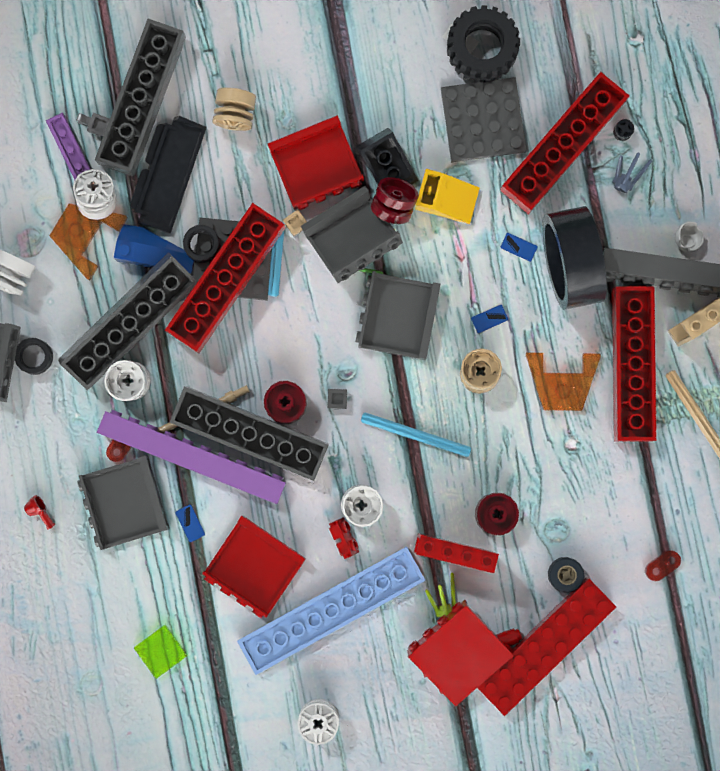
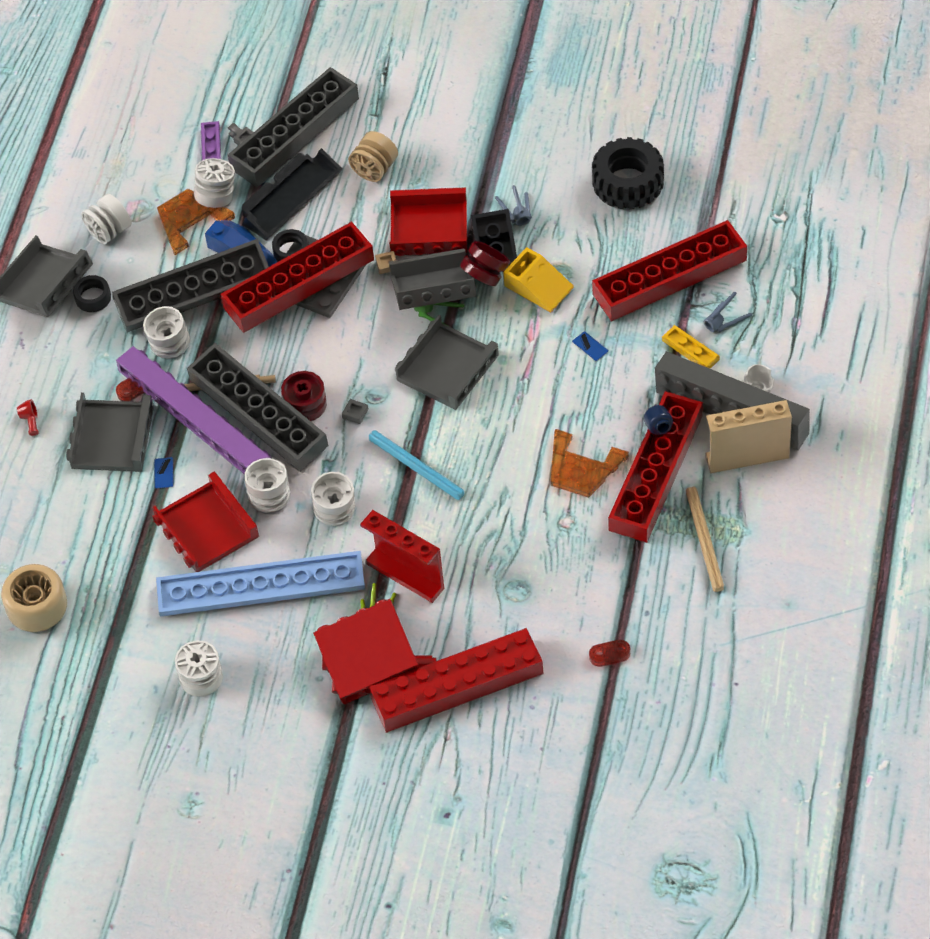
camera: 25 degrees right, 30 degrees down
(128, 718) = (34, 598): none -> tan wheel
(160, 651) = (79, 567): clear neon green tile -> none
(275, 267) = (352, 288): medium azure axle -> none
(295, 501) = (267, 485): none -> white wheel
(348, 545) = (303, 519): red hinge -> none
(399, 122) = (521, 214): none -> sand blue plant
(480, 360) = (502, 424): tan wheel -> none
(483, 119) = (602, 235): dark grey plate -> none
(489, 318) = (534, 394): blue sticker -> none
(508, 514) = (462, 549): dark red wheel -> none
(565, 574) = (505, 621): black wheel -> none
(574, 257) = (629, 345): black wheel -> none
(614, 219) = (690, 347): none -> yellow tile
(626, 325) = (658, 420): none -> dark blue head
(627, 130) = (733, 280): black wheel -> none

